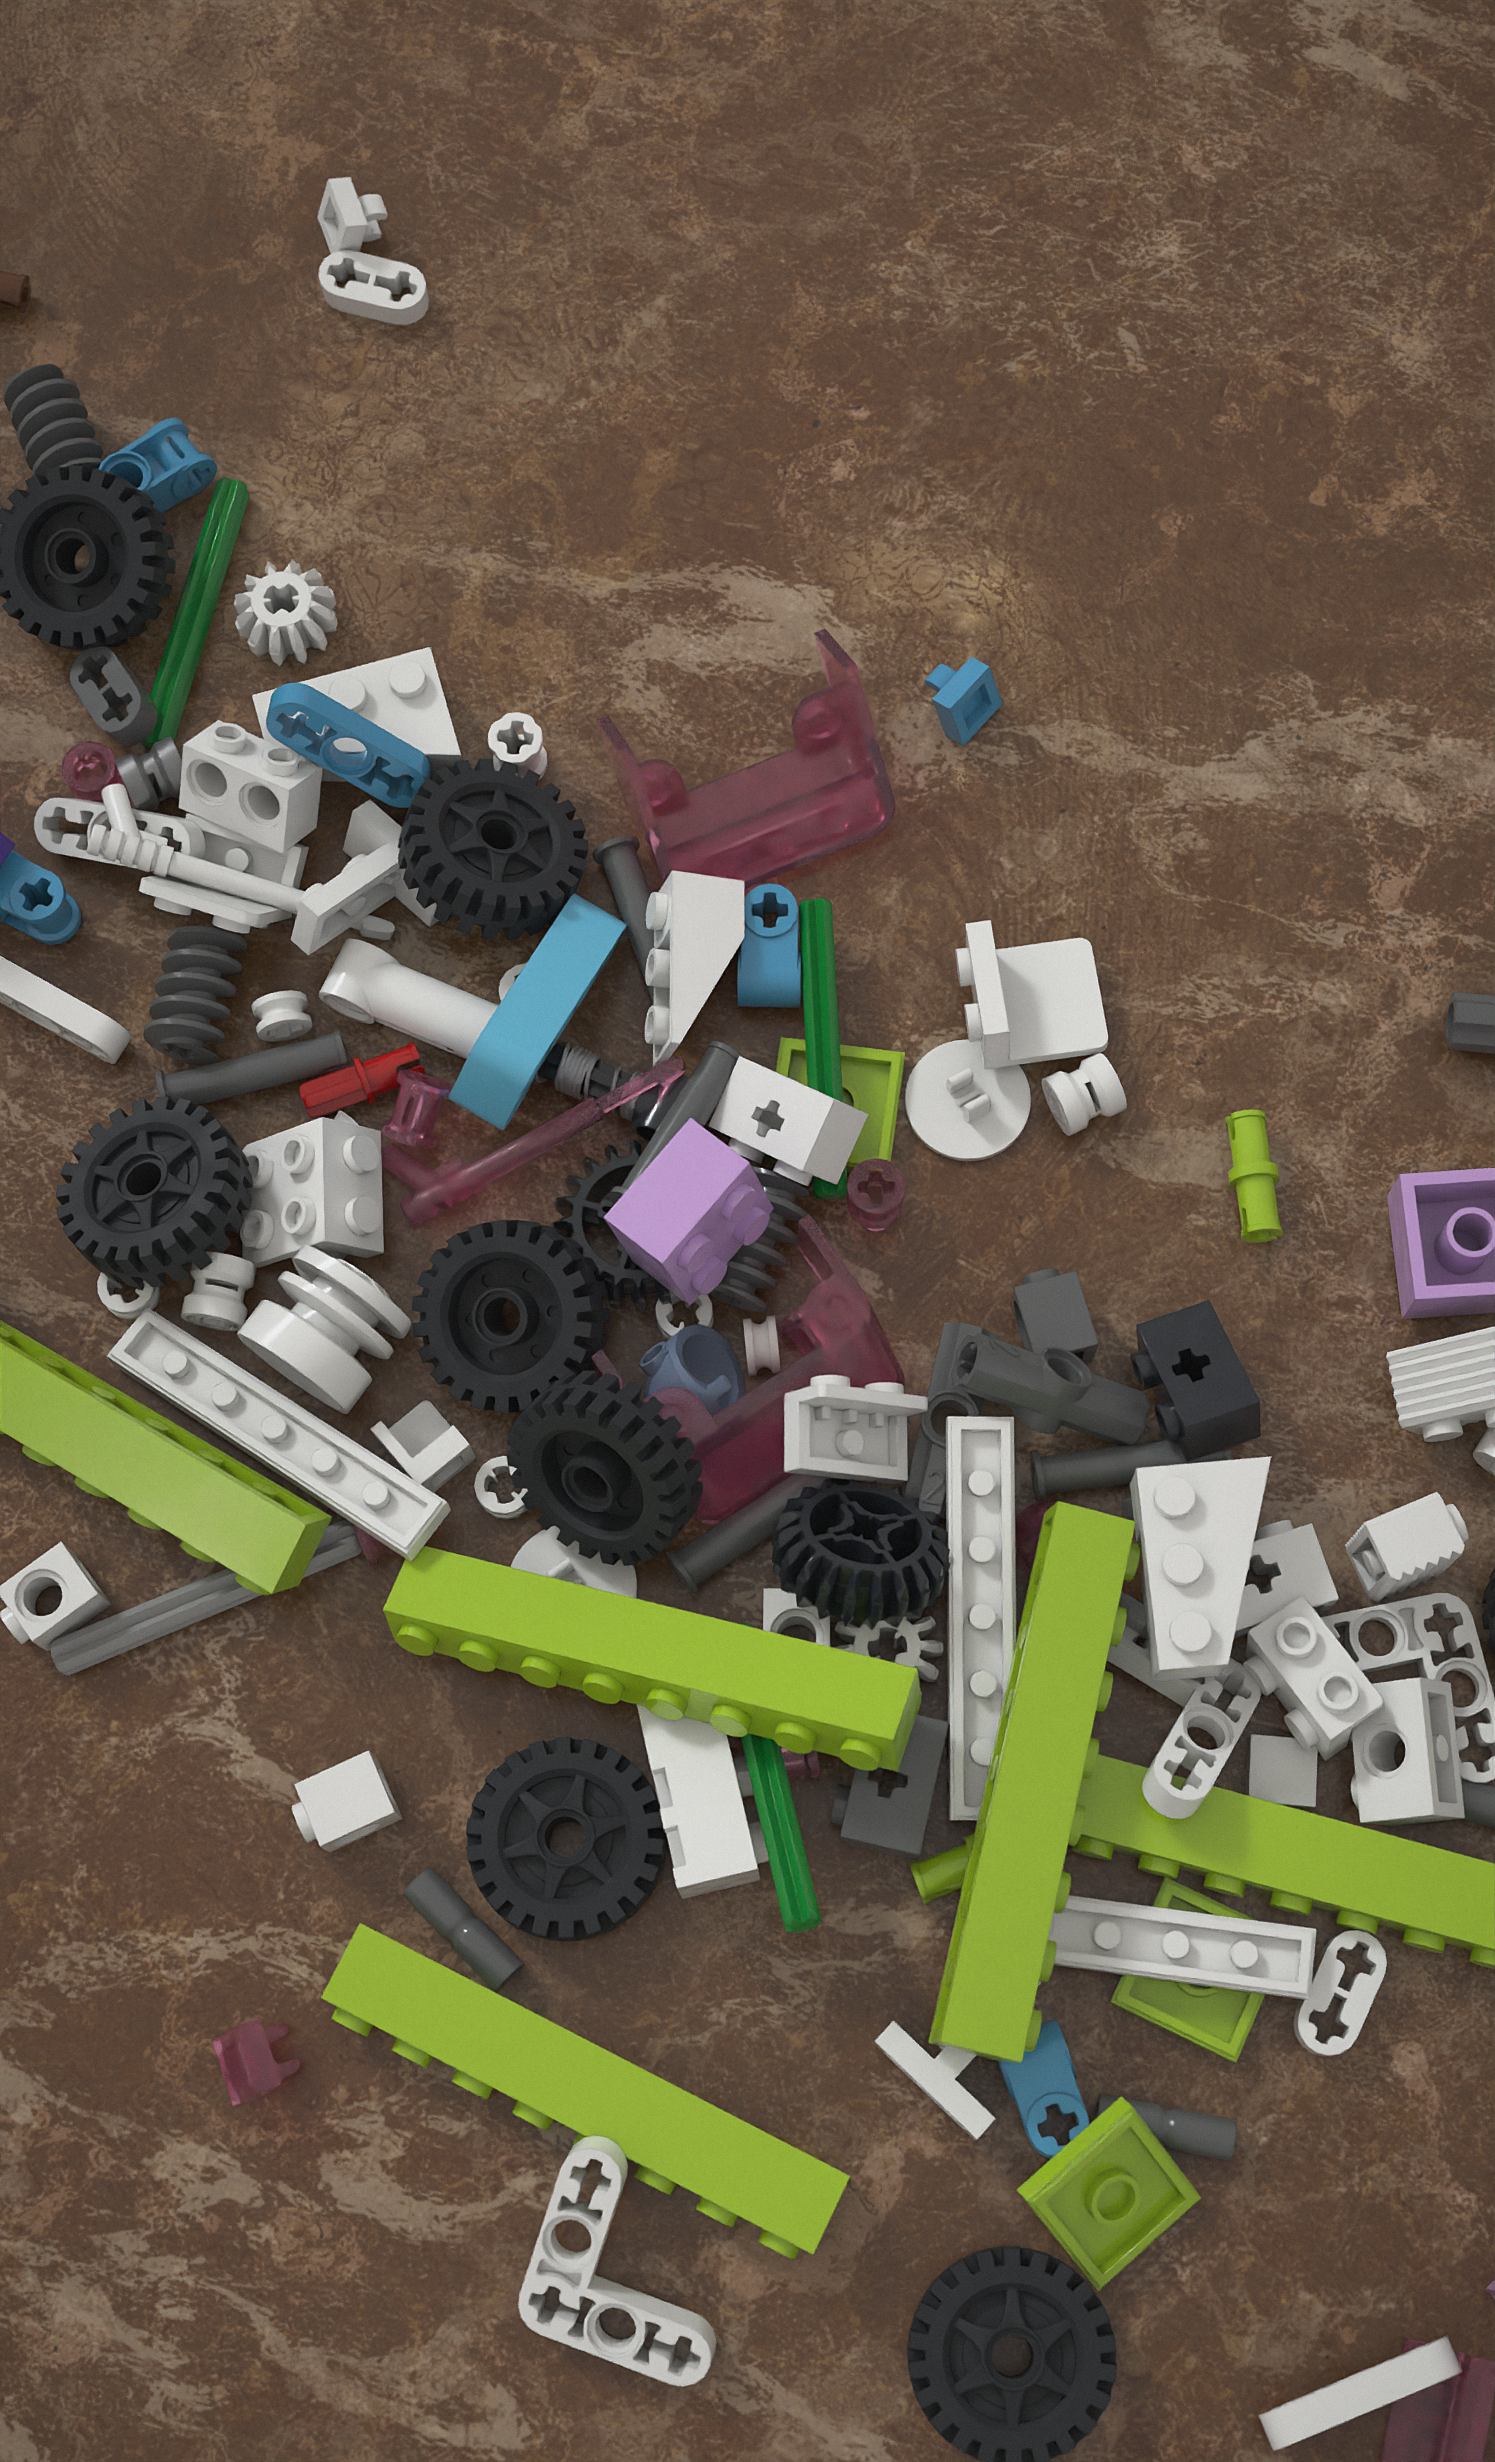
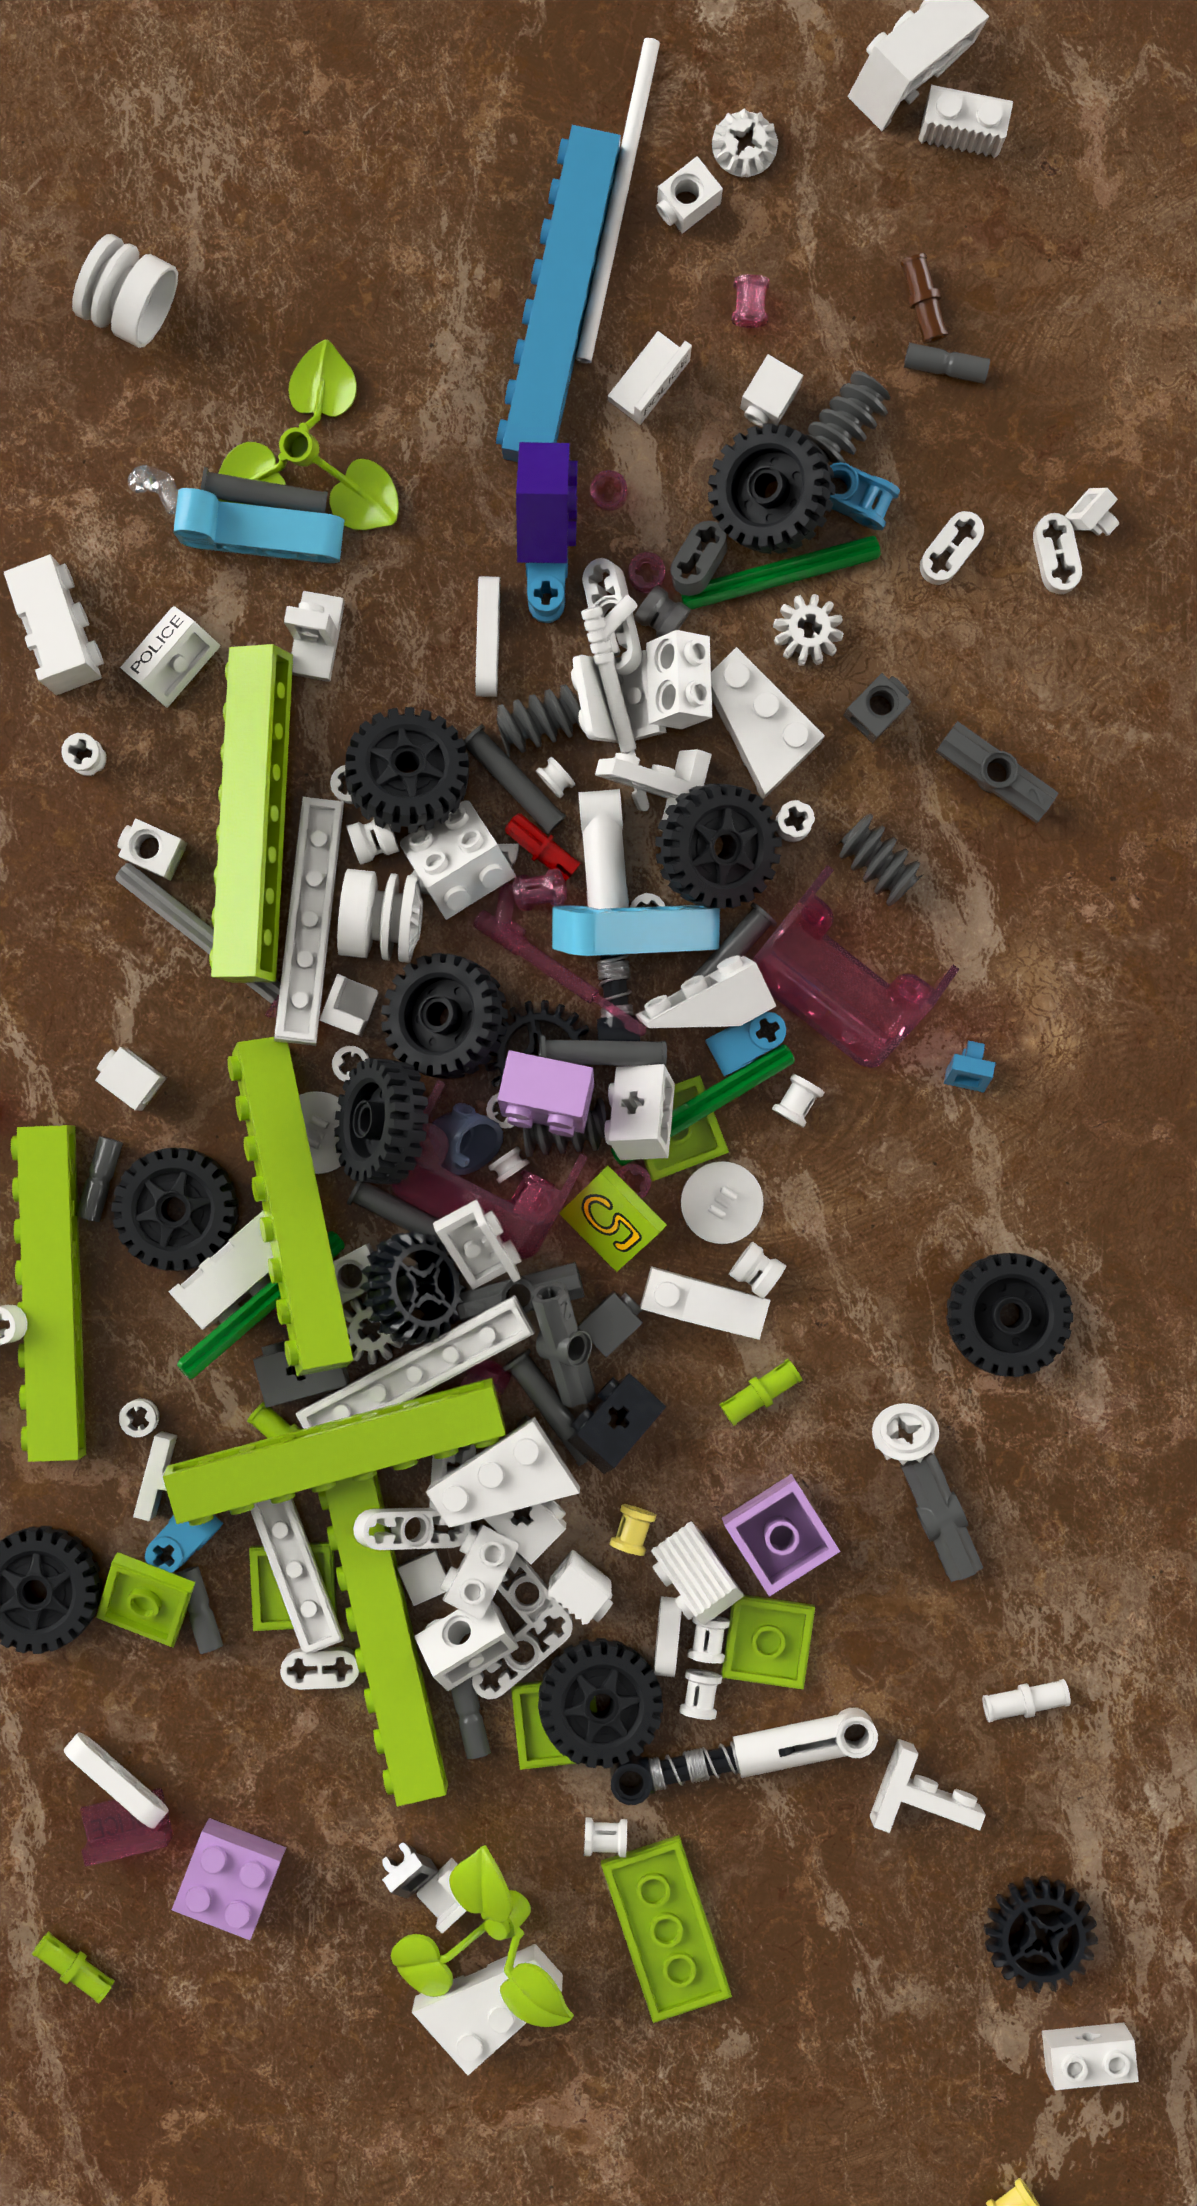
camera: 55 degrees right, 15 degrees up
(57, 302) = (942, 362): none -> dark grey piece
(280, 406) = (944, 542): none -> white beam
(339, 723) = (730, 726): dark azure beam -> none
(438, 601) = (867, 721): none -> dark grey brick
(628, 670) = (879, 859): none -> dark grey piece
(632, 466) = (1020, 787): none -> dark grey piece
(843, 2041) = (151, 1416): none -> white bush
(884, 929) = (798, 1100): none -> white bush
(912, 1238) = (612, 1218): none -> lime tile
(1031, 999) = (799, 1210): white bracket -> none
(1088, 1189) = (704, 1303): none -> white slope
(1323, 768) = (1041, 1322): none -> black wheel
(1358, 1442) = (632, 1530): none -> light yellow bush
(1393, 1002) = (912, 1419): none -> white gear

